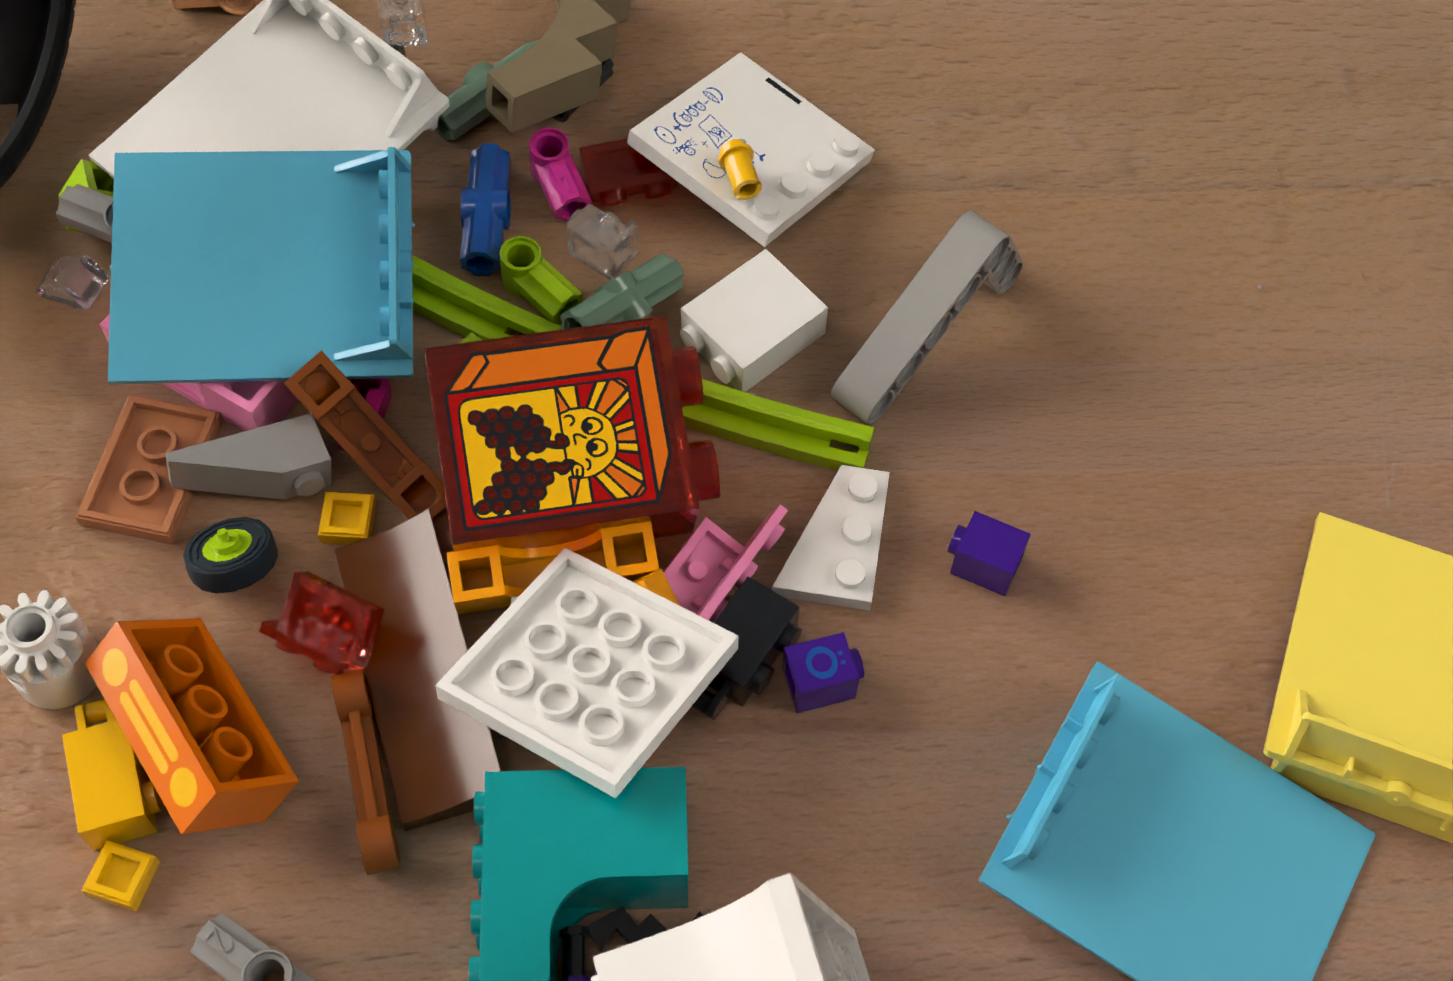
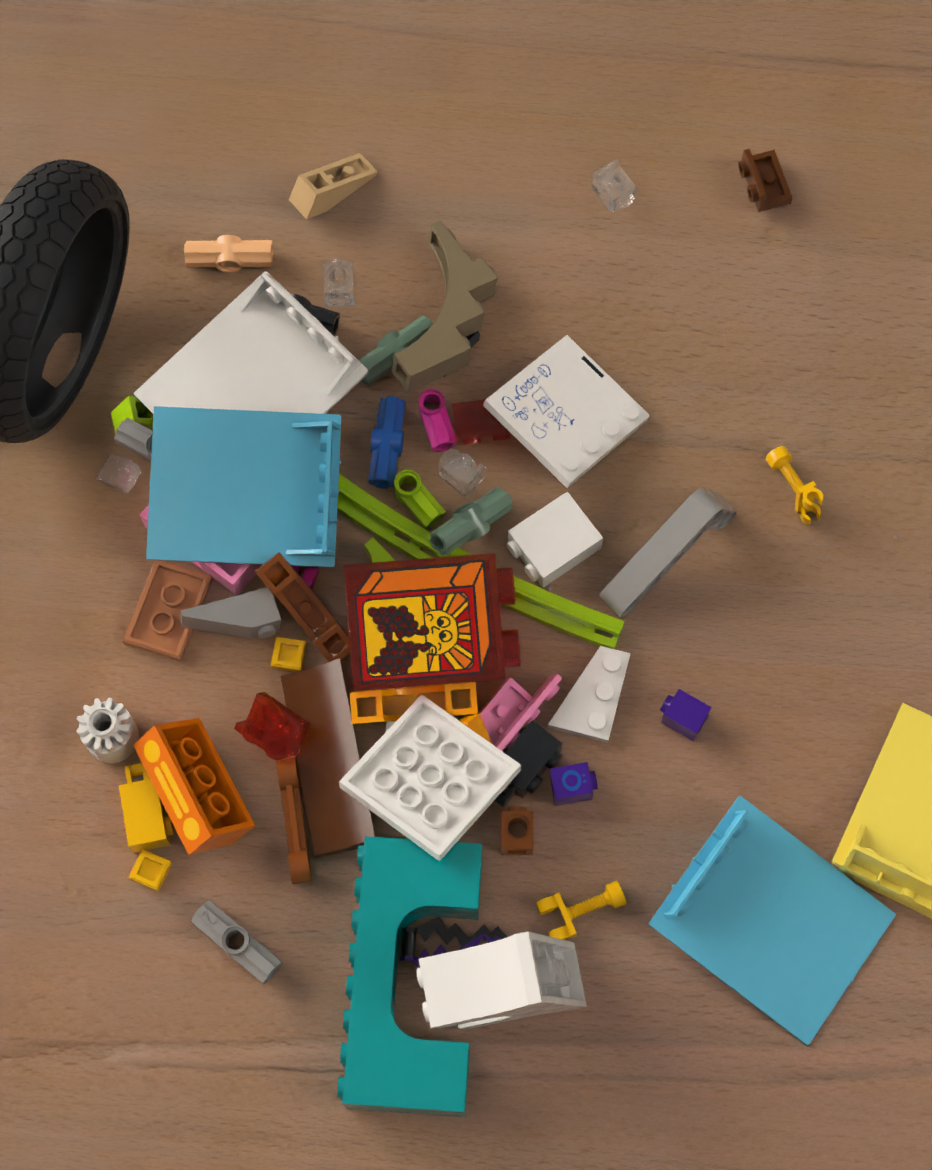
camera: 10 degrees right, 10 degrees up
(230, 555) = (217, 675): black wheel -> none
(737, 161) = (553, 427): yellow pin -> none
(737, 776) = (517, 845): none -> dark orange brick
(910, 844) = (612, 896): none -> yellow bar
(1122, 245) = (805, 494): none -> yellow bar

